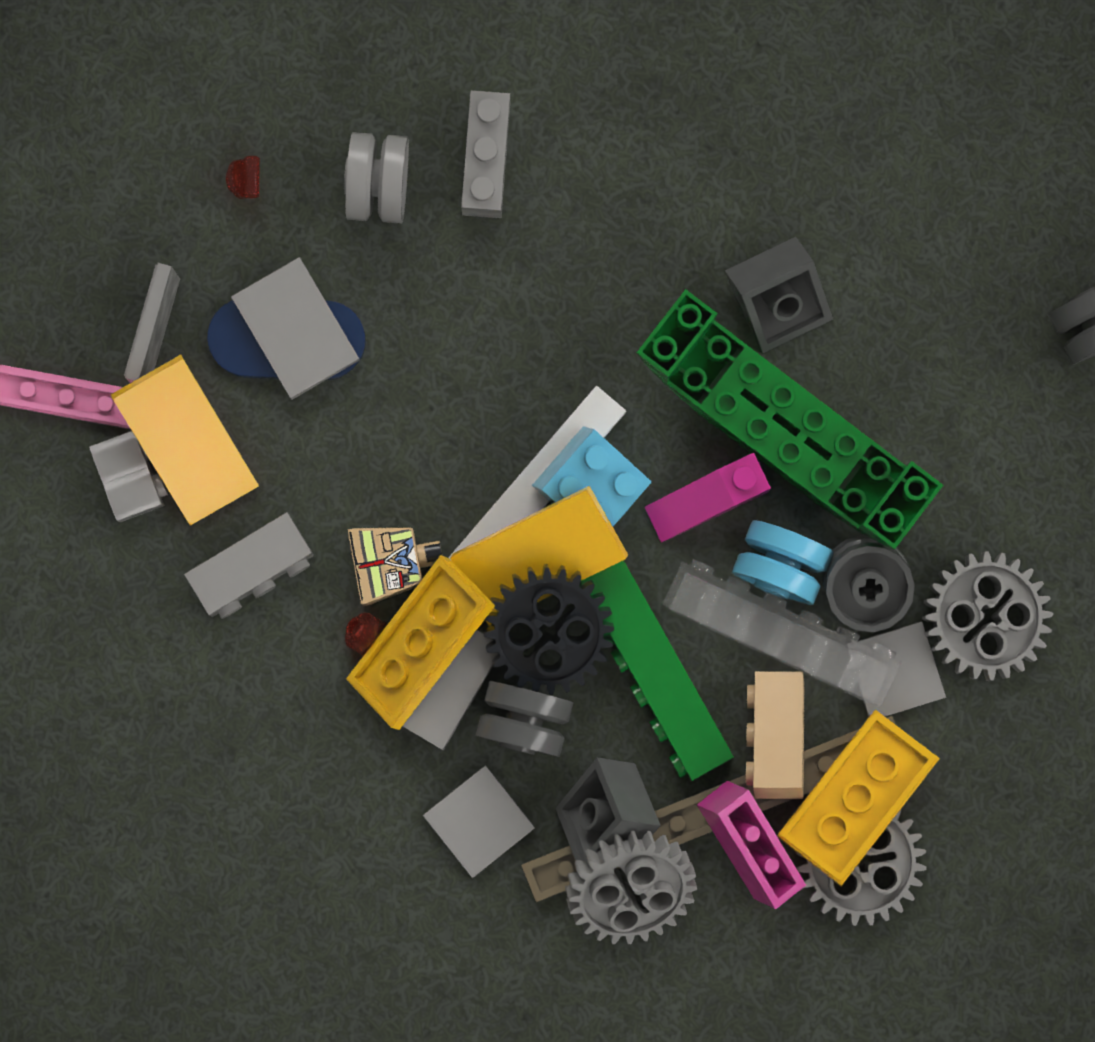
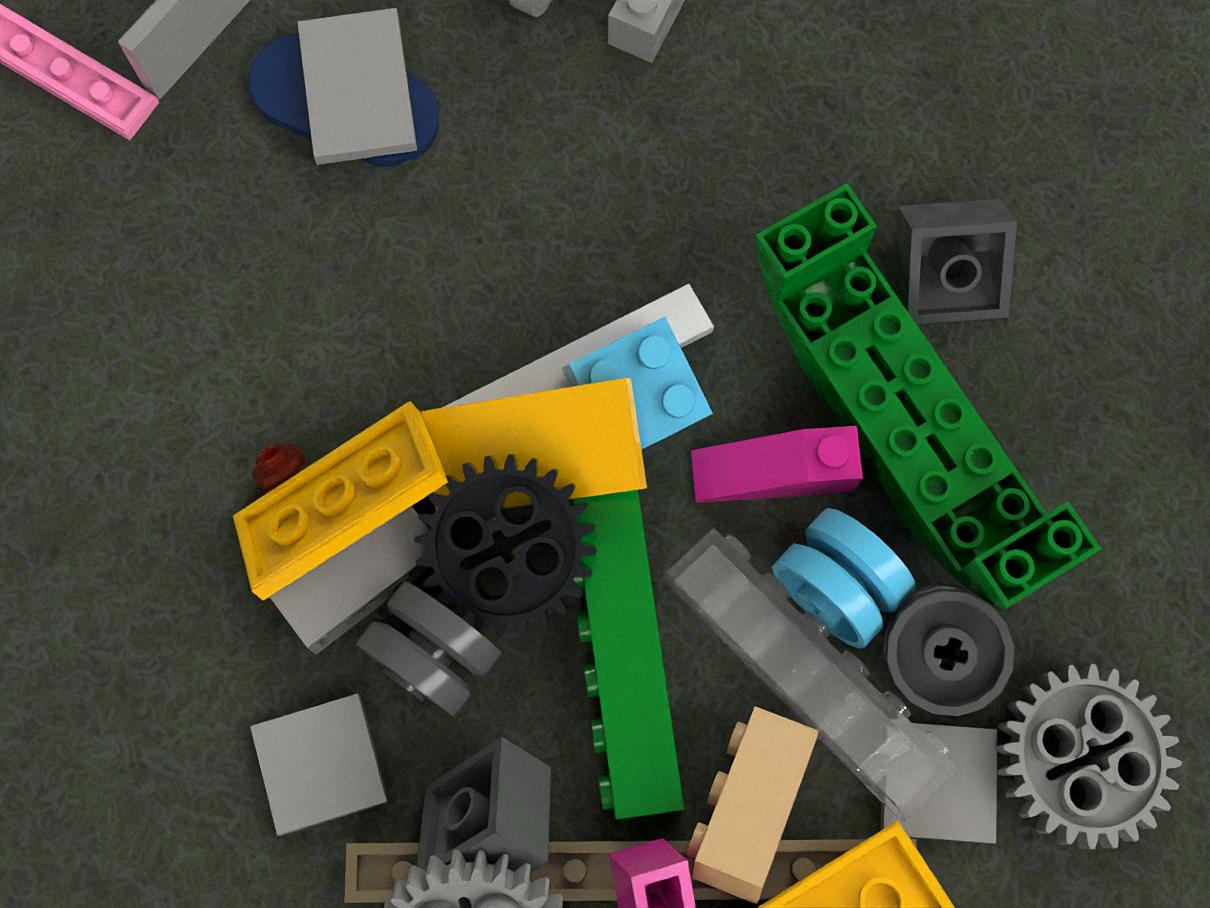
camera: 20 degrees right, 10 degrees down
(128, 477) = (85, 177): light grey brick -> none
(184, 440) = (162, 150): yellow tile -> none
(250, 566) = (176, 333): light grey brick -> none
(389, 561) = (343, 390): torso -> none

